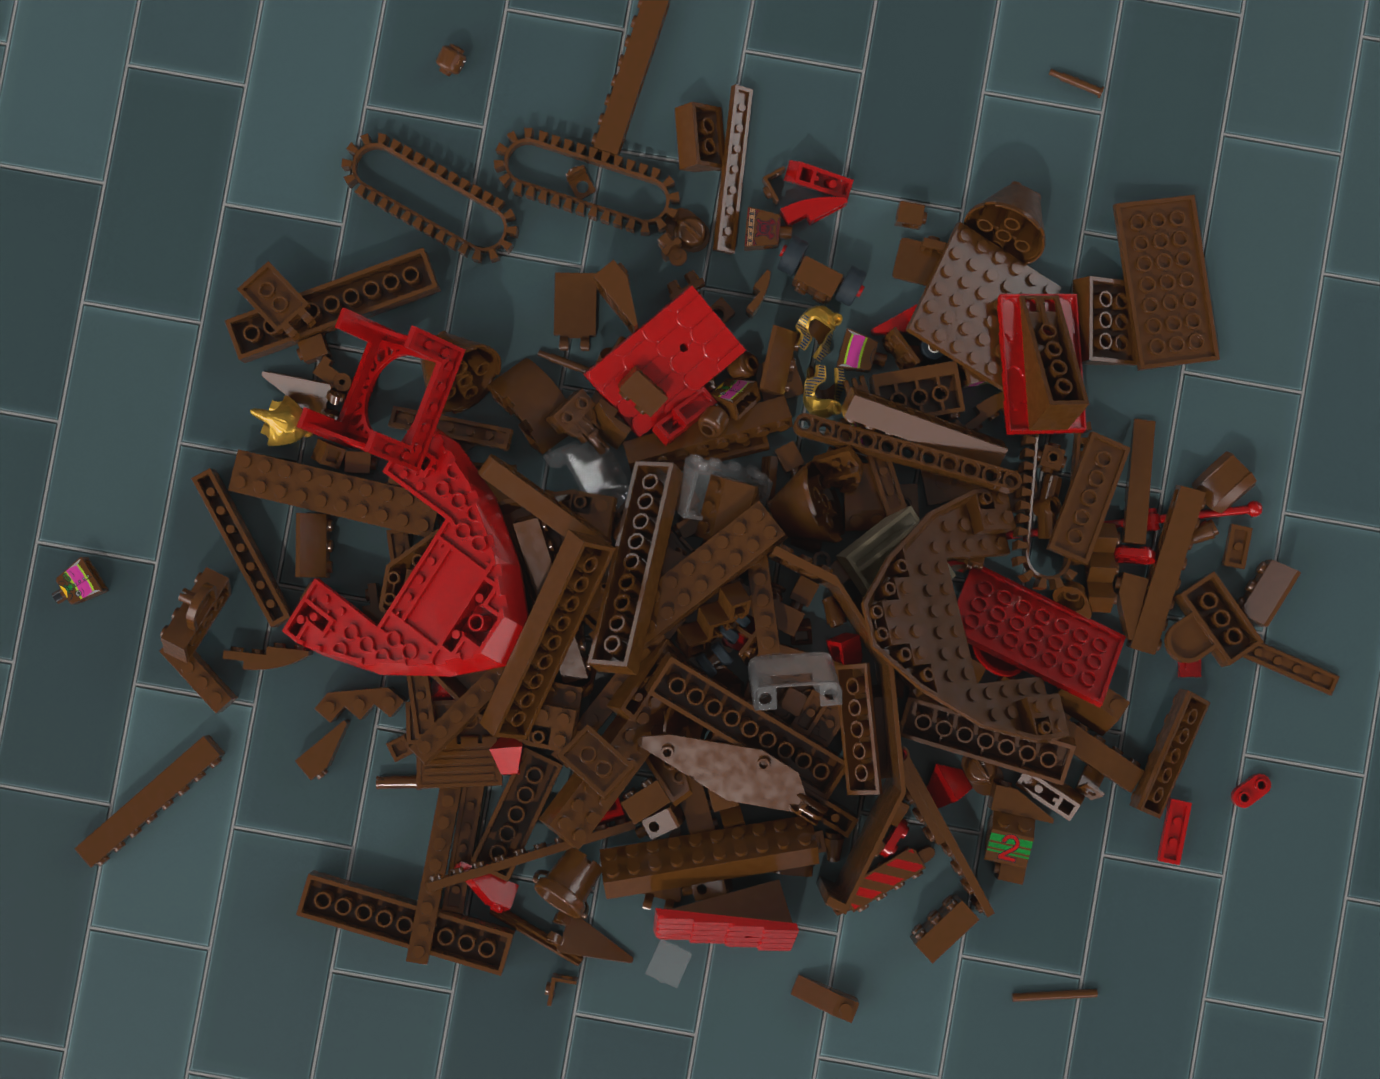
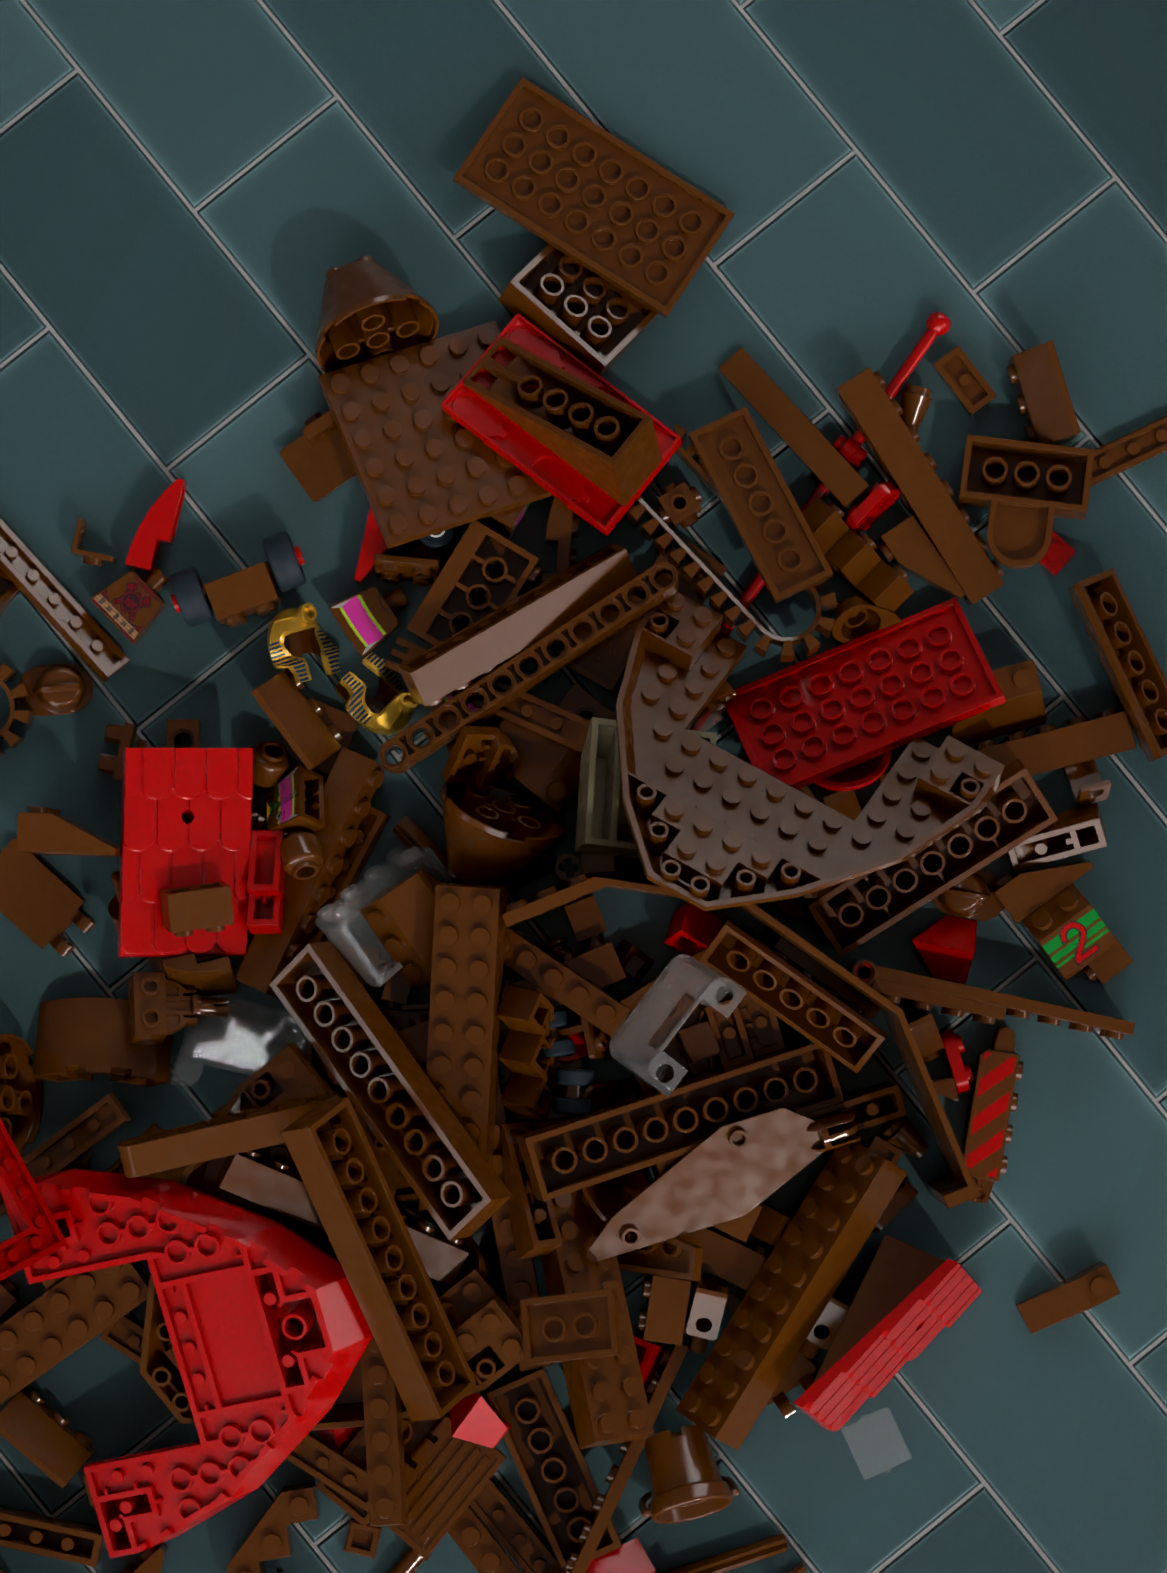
camera: 50 degrees left, 0 degrees up
(373, 595) = (161, 1417): reddish brown brick -> none
(564, 362) = (84, 963): reddish brown piece -> none
(584, 940) = (766, 1516): reddish brown flag -> none
(672, 250) = (64, 729): reddish brown hips -> none
(759, 291) = (198, 667): reddish brown slope -> none
(789, 458) = (419, 802): reddish brown brick -> none
(818, 179) = (129, 490): red slope -> none
(833, 612) = (640, 906): reddish brown cone -> none
(910, 215) = (262, 420): reddish brown brick -> none
(943, 927) = (1103, 1094): reddish brown brick -> none
(1048, 505) = (729, 555): reddish brown piece -> none
(1077, 82) = (277, 95): reddish brown piece -> none
(1224, 482) = (878, 333): reddish brown slope -> none

